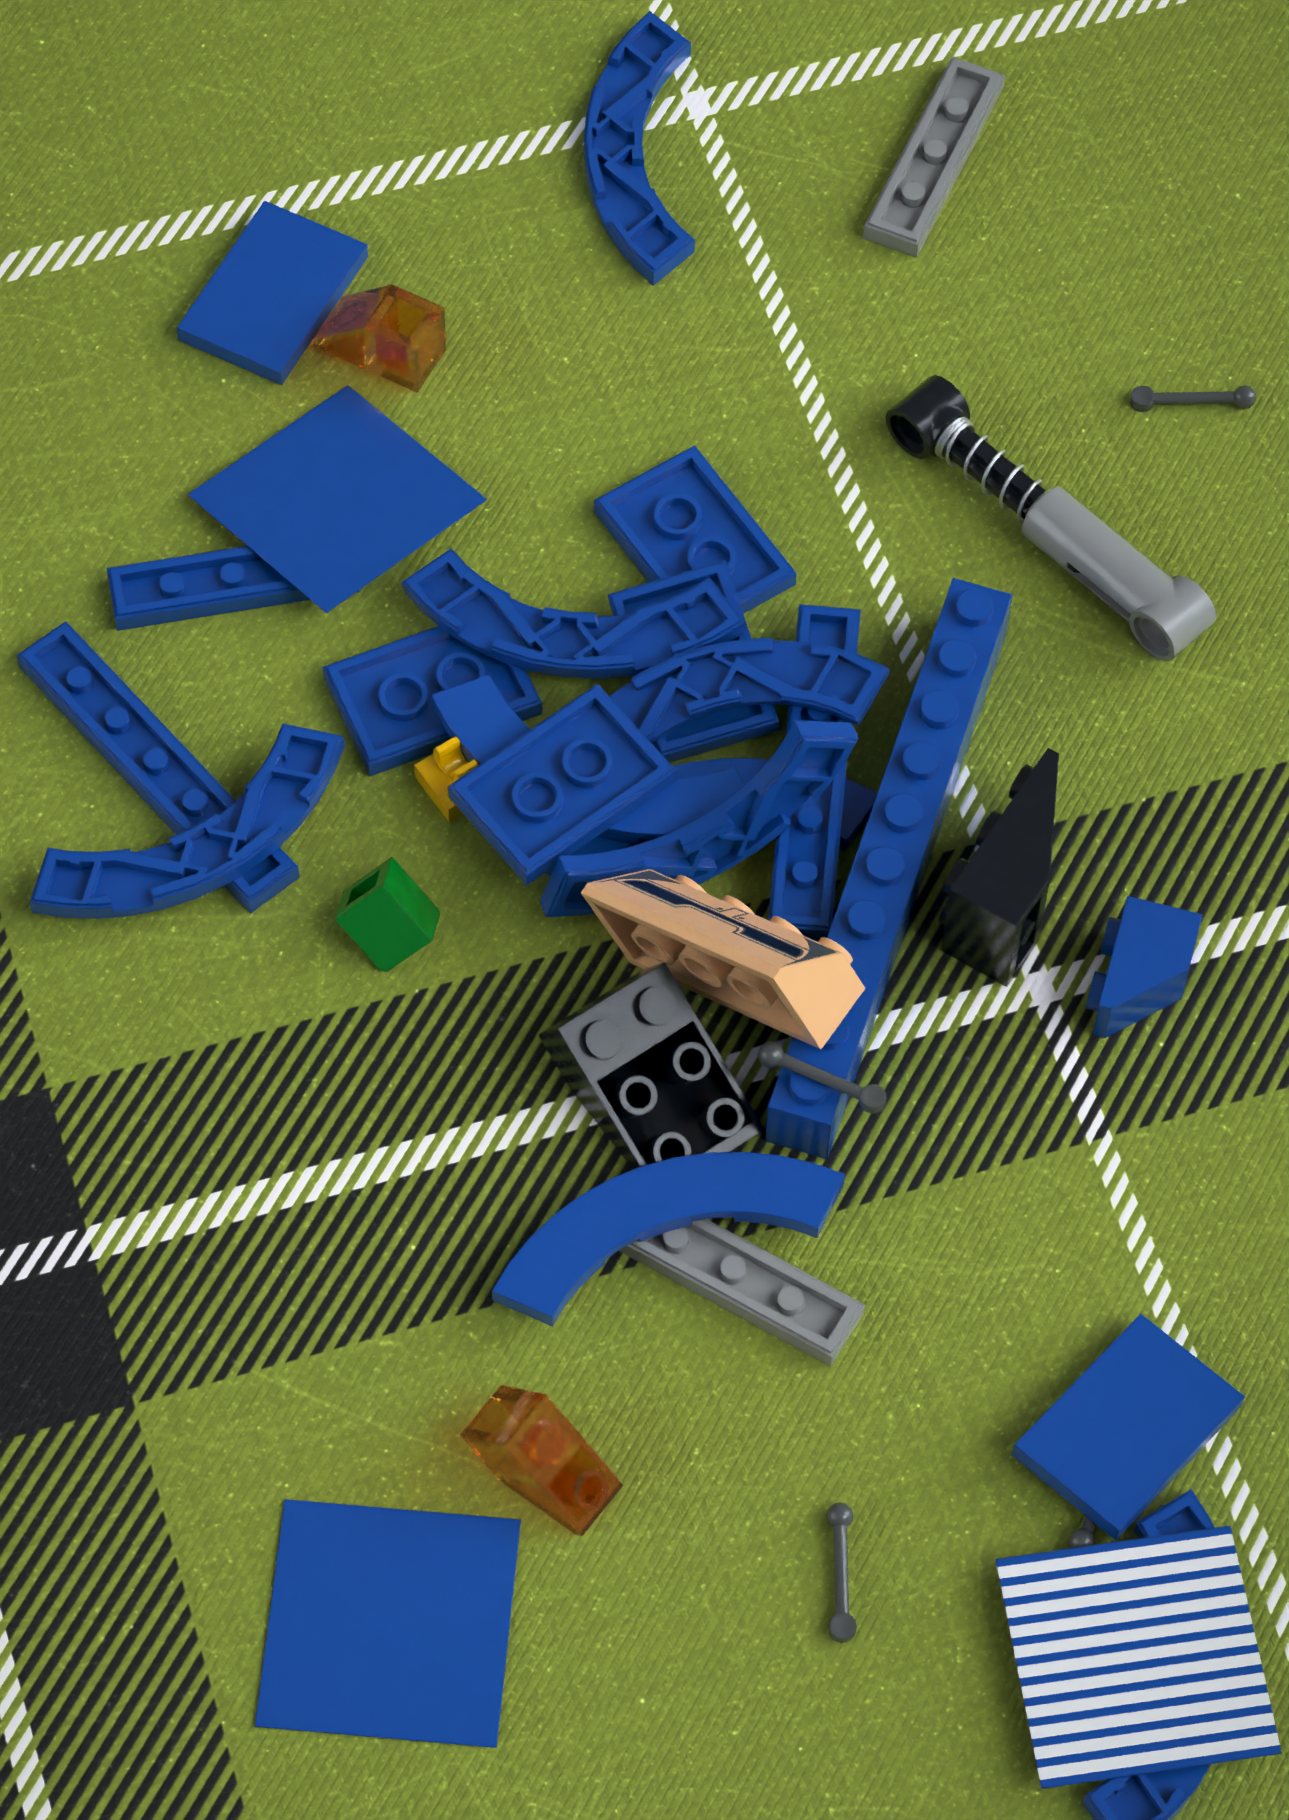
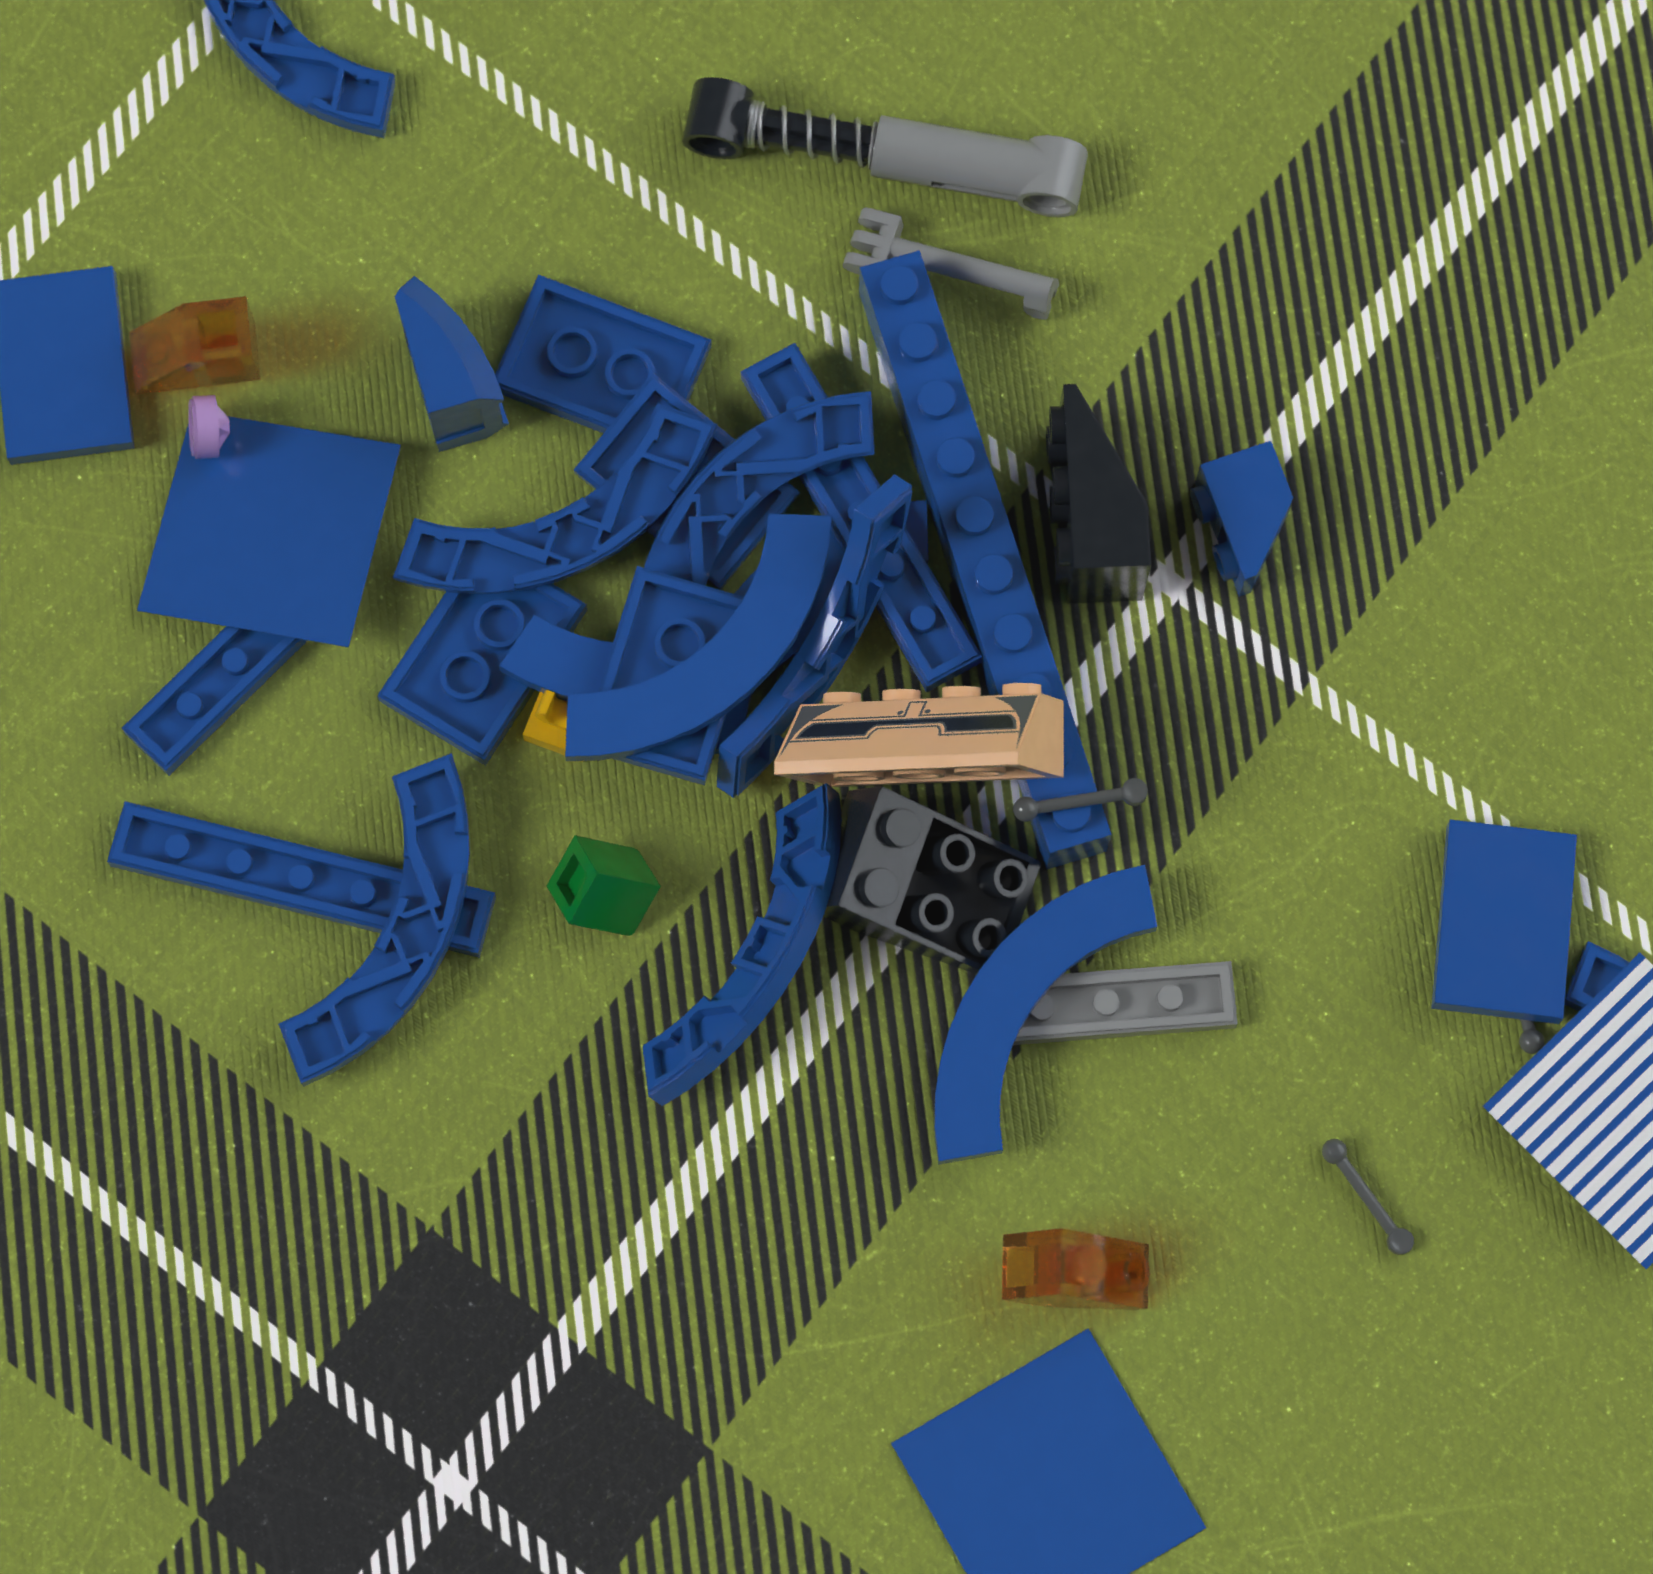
camera: 35 degrees left, 15 degrees up
(345, 393) = (207, 426): none -> lavender tile
(472, 1041) = (769, 957): none -> blue tile
(559, 459) = (450, 369): none -> blue slope
(607, 796) = (725, 668): none -> blue tile
(1092, 690) = (1034, 287): none -> light grey hinge

